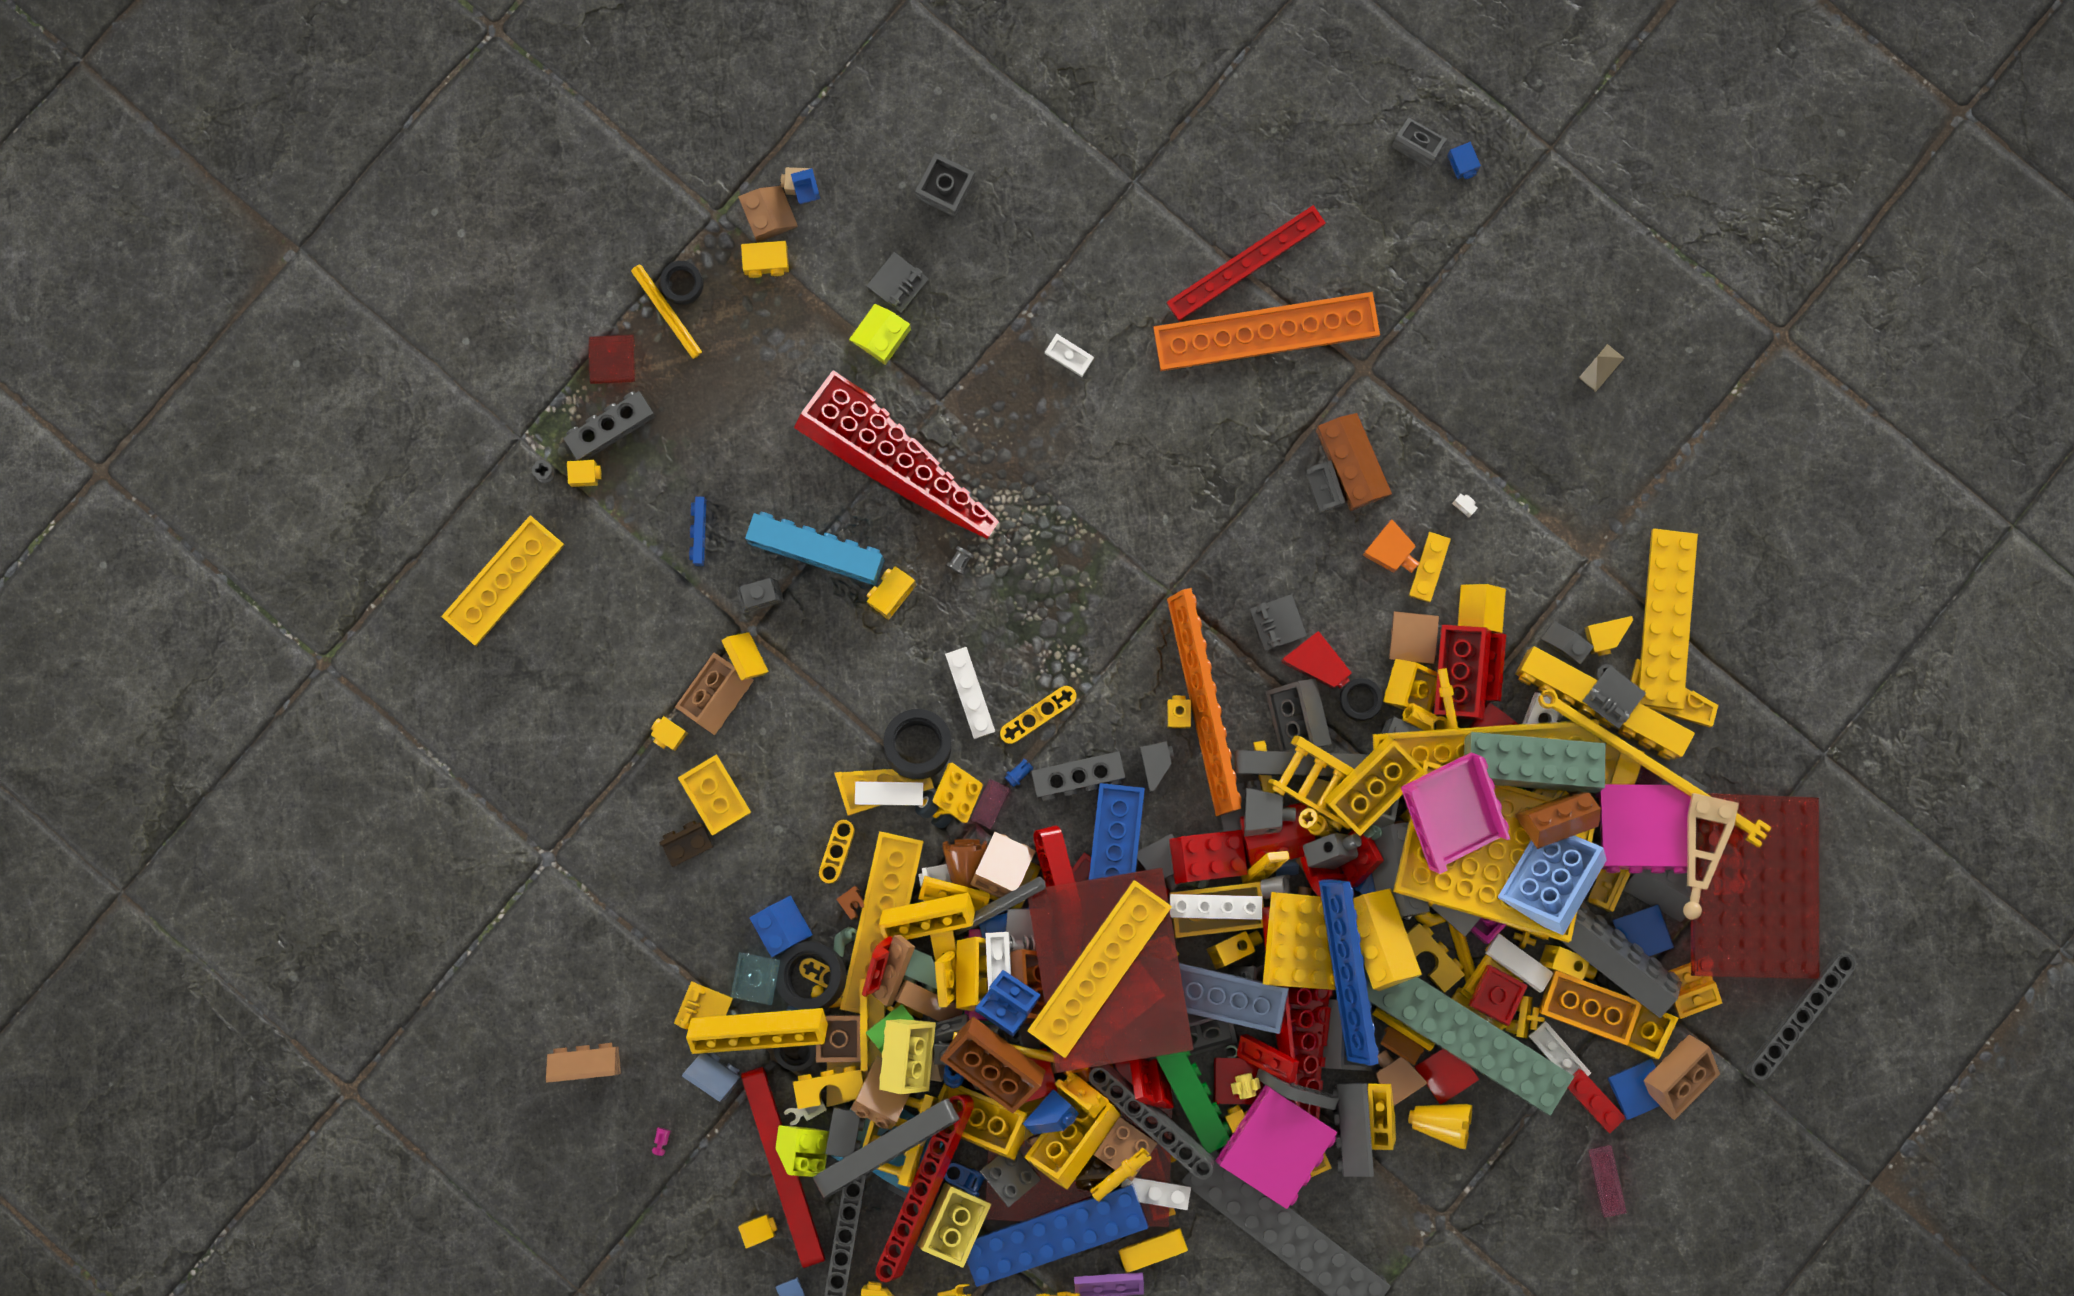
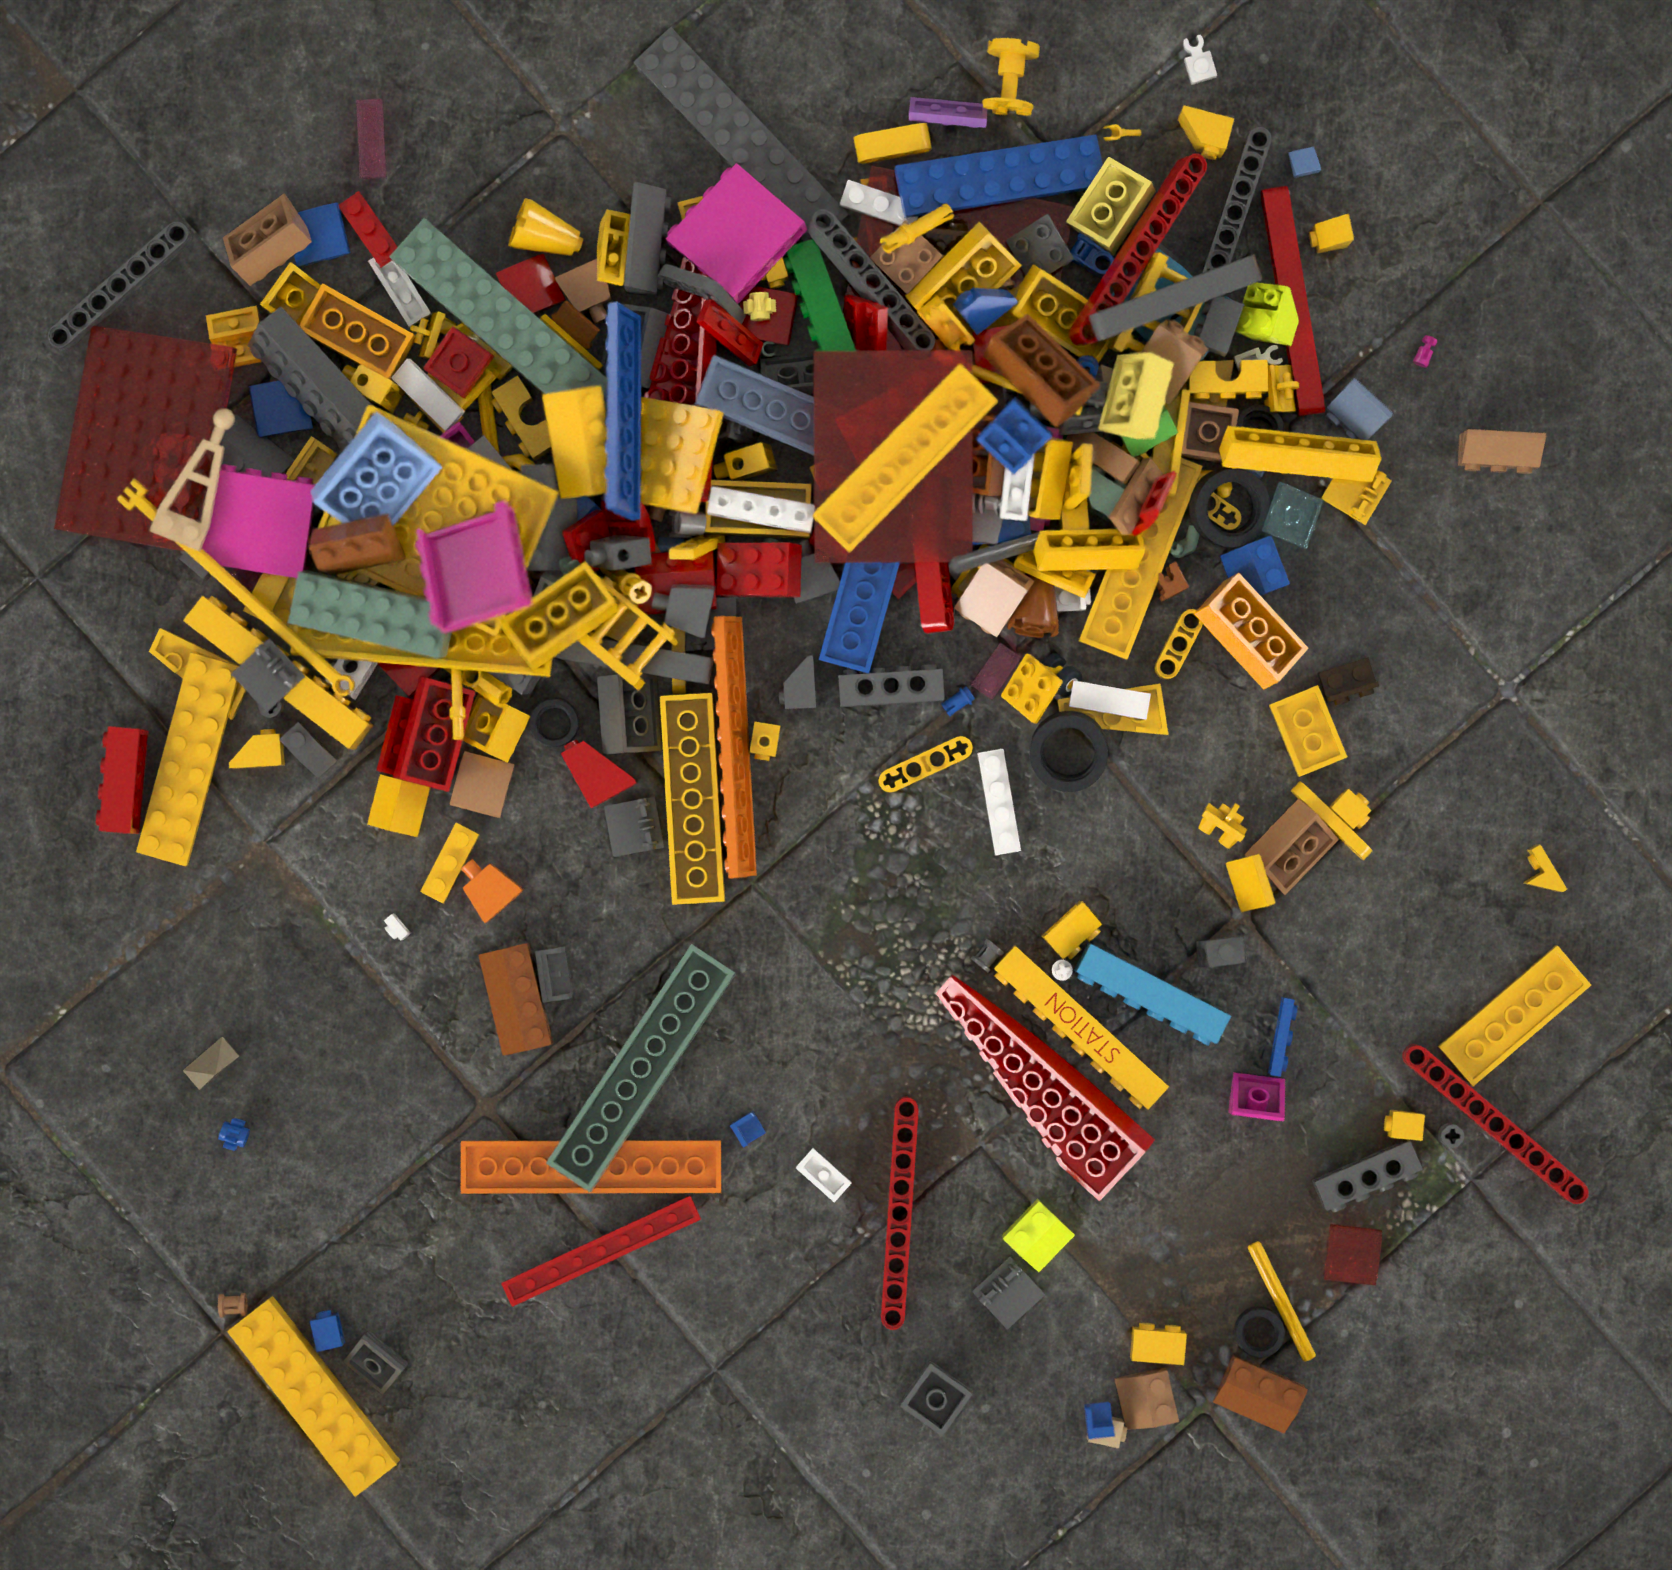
camera: 170 degrees left, 5 degrees up
(491, 702) = (1548, 876): none -> yellow slope
(499, 478) = (1506, 1129): none -> red beam
(673, 232) = (1260, 1394): none -> dark orange slope
(683, 721) = (1335, 824): none -> yellow beam
(711, 477) = (1257, 1097): none -> dark pink slope
(774, 707) = (1227, 820): none -> yellow hips
(776, 871) = (1251, 631): none -> light orange brick
(782, 1087) = (1281, 389): none -> yellow hips
(871, 512) = (1080, 1027): none -> yellow brick
(894, 557) = (1062, 970): none -> white axle
(995, 324) = (899, 1225): none -> red beam
(1140, 383) = (747, 1128): none -> blue panel
(1232, 652) = (692, 798): none -> yellow brick
(1238, 418) = (641, 1068): none -> sand green brick
(1466, 106) = (313, 1396): none -> yellow brick
(1547, 170) = (232, 1305): none -> medium nougat bush
(1571, 310) = (234, 1134): none -> blue gear
(1720, 591) = (122, 780): none -> red brick

